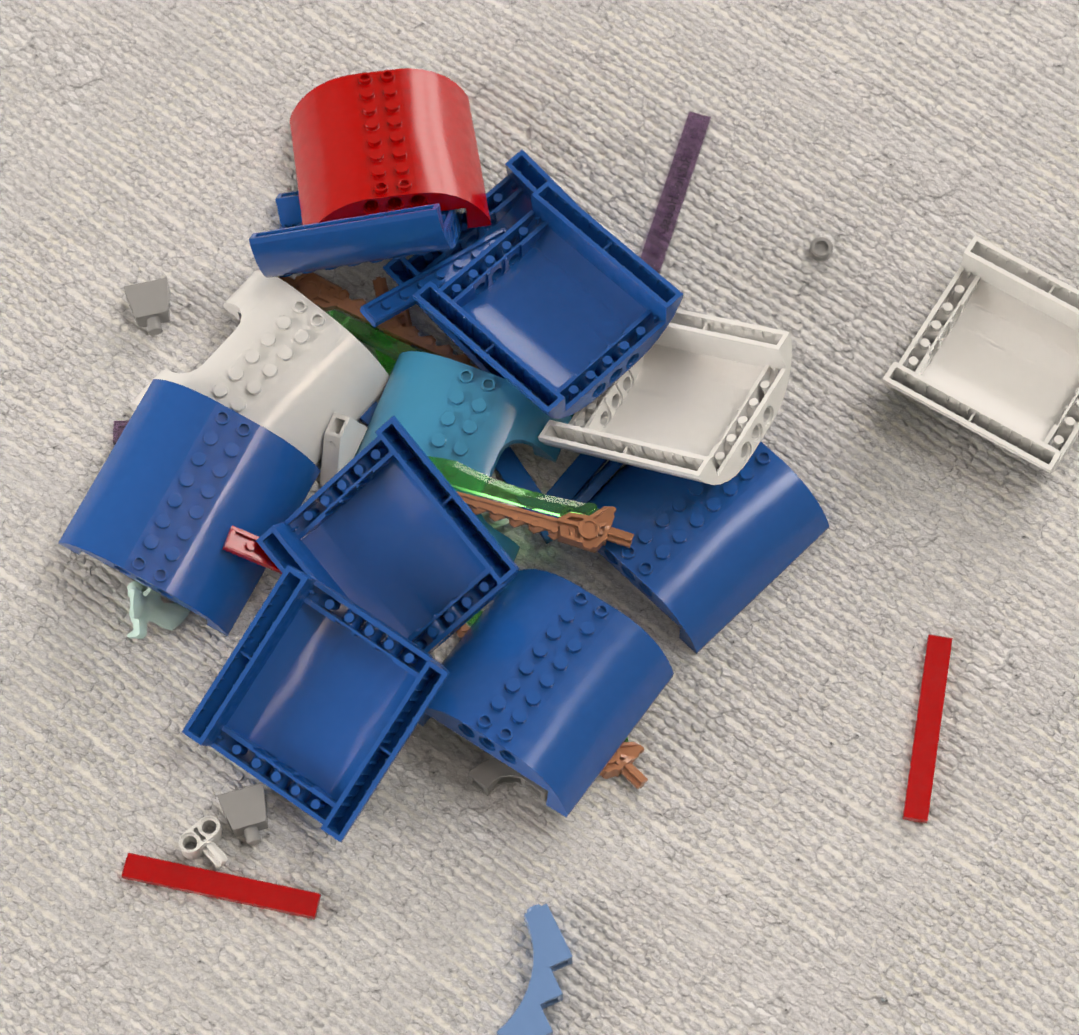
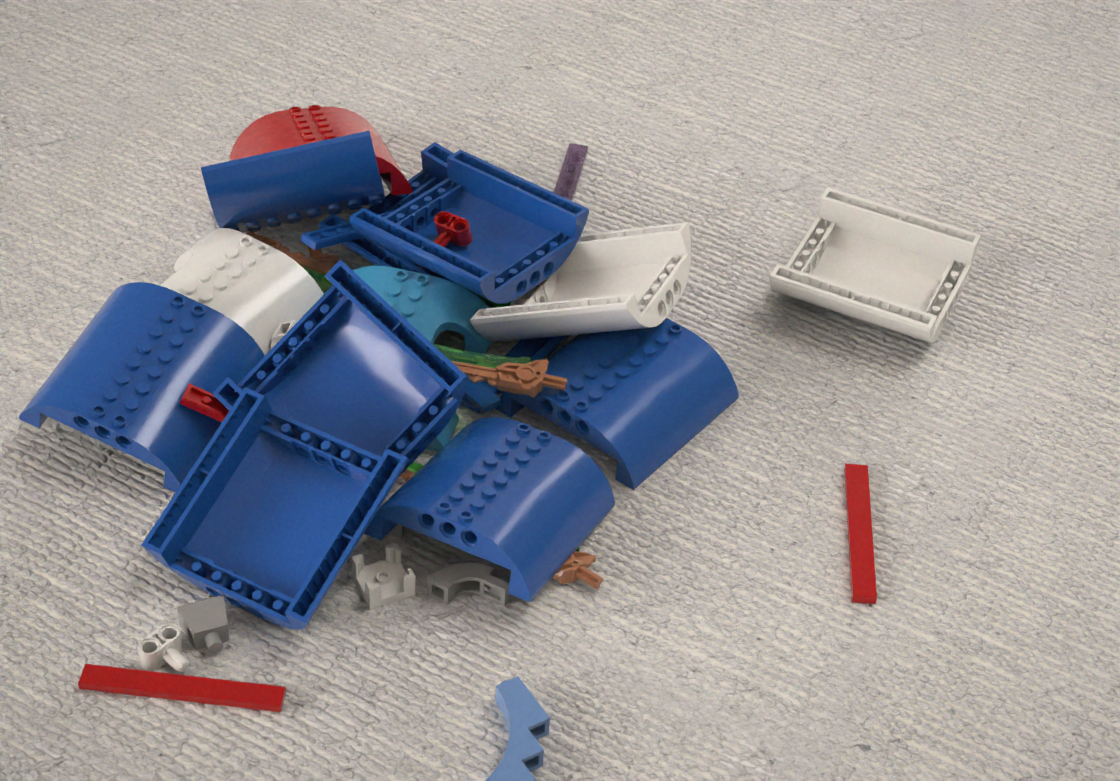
camera: 10 degrees left, 25 degrees down
(148, 606) = (106, 471): light aqua animal -> none
(150, 304) = (106, 268): light grey torso -> none
(425, 764) = (383, 580): none -> white panel
(527, 299) = (452, 229): none -> red beam
(821, 249) = (696, 221): light grey tile -> none

